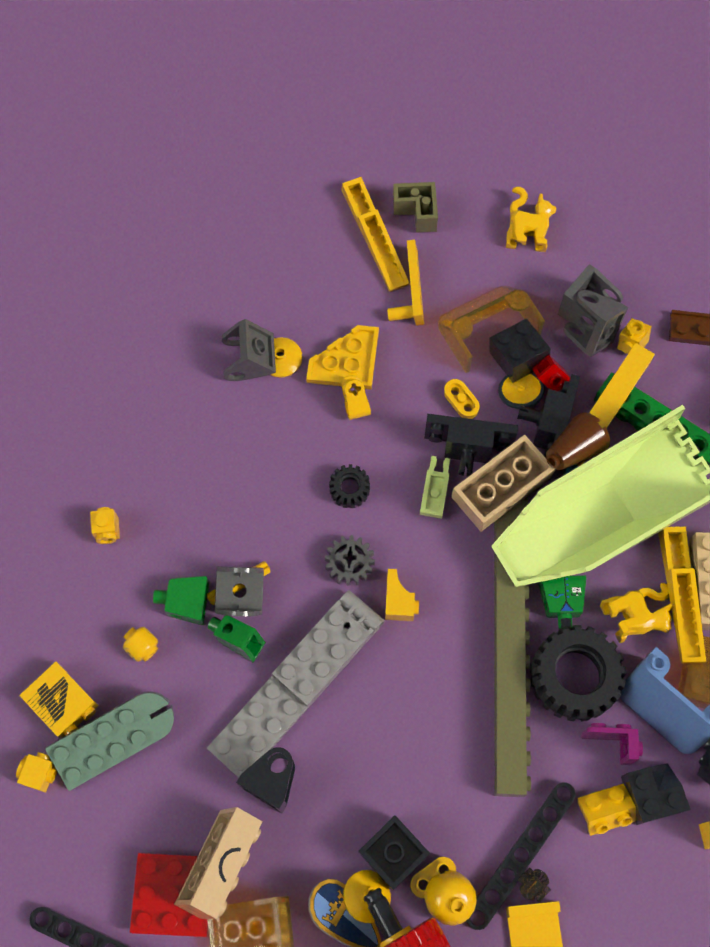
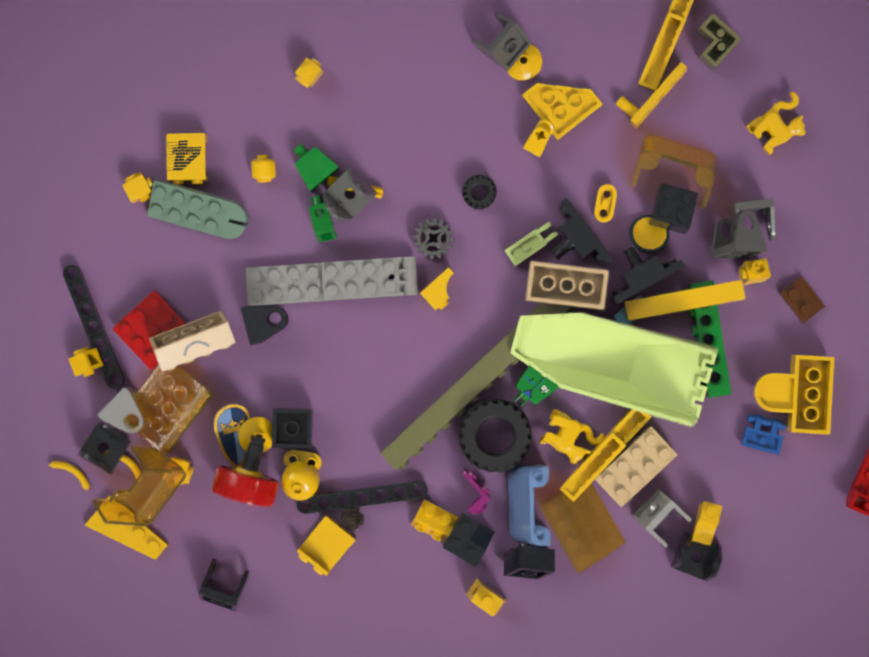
camera: 45 degrees right, 20 degrees up
(551, 373) = (675, 244): red brick -> none
(578, 442) = (632, 307): reddish brown cone -> none

